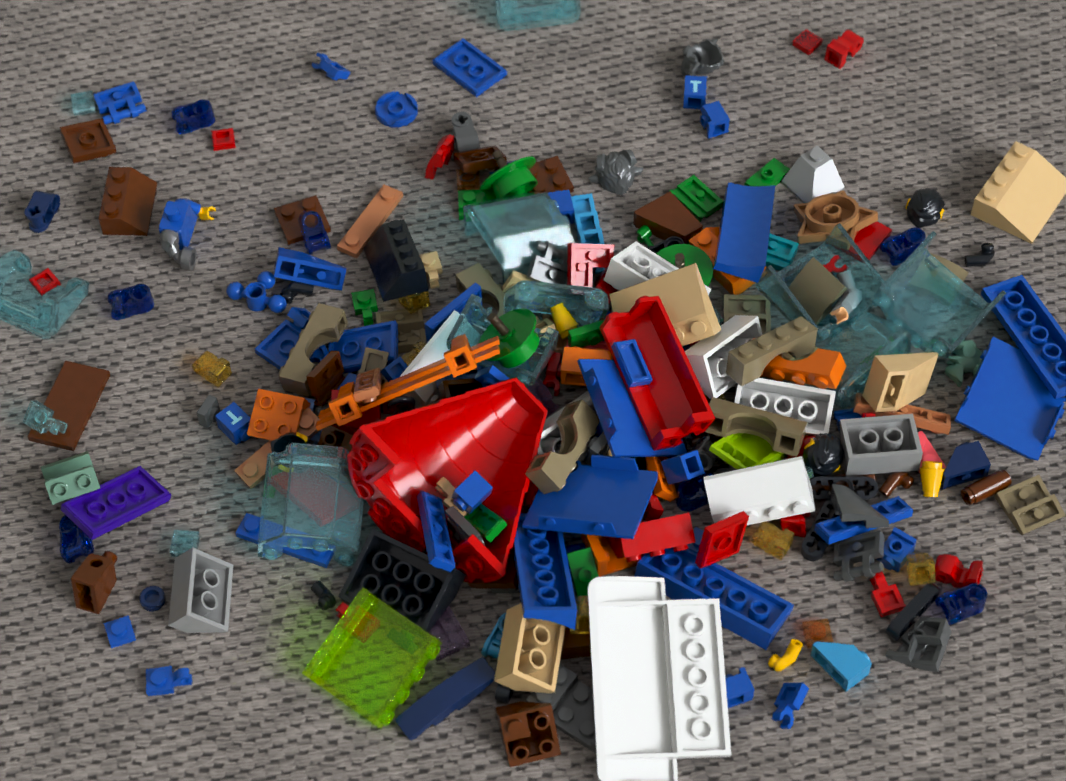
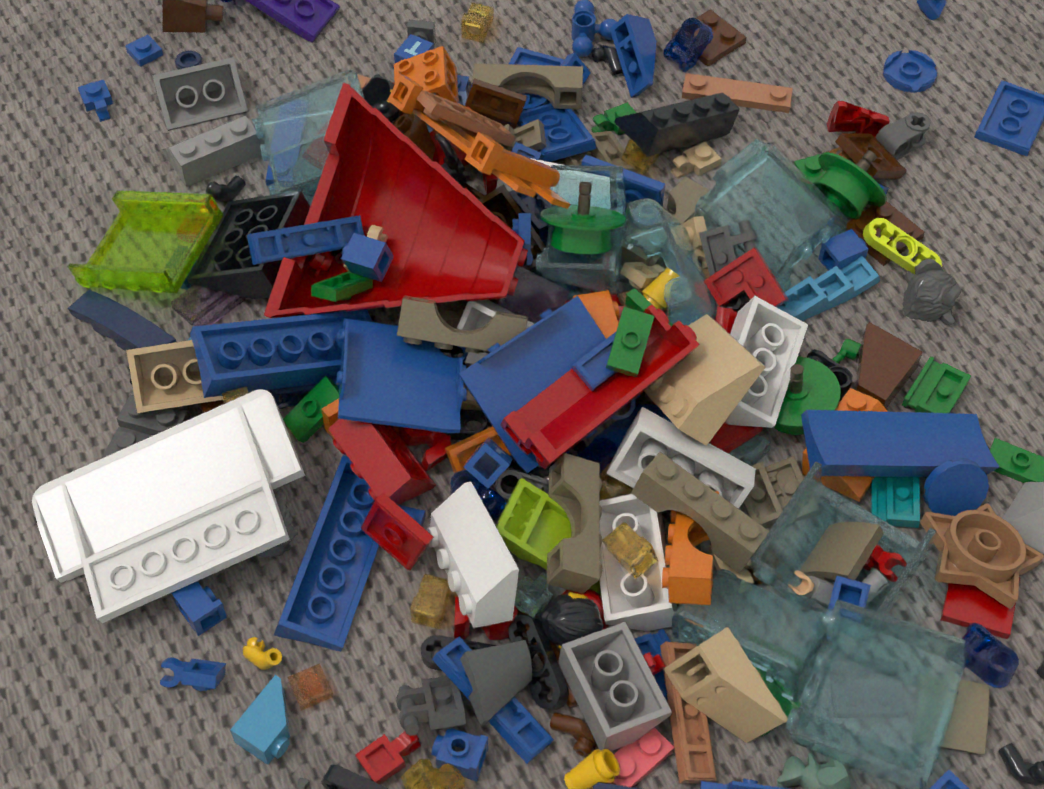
camera: 70 degrees right, 0 degrees up
(183, 541) = (256, 64): clear light blue plate -> none
(270, 596) = (214, 151): none -> light grey slope
(460, 526) = (316, 268): dark grey plate -> none
(528, 732) = (91, 405): reddish brown slope -> none
(554, 178) = (890, 251): none -> neon yellow beam
(630, 340) = (630, 342): none -> green plate
(784, 214) = (956, 487): none -> blue tile
(787, 399) = (629, 548): none -> clear yellow leg
(858, 292) = (849, 591): none -> blue slope

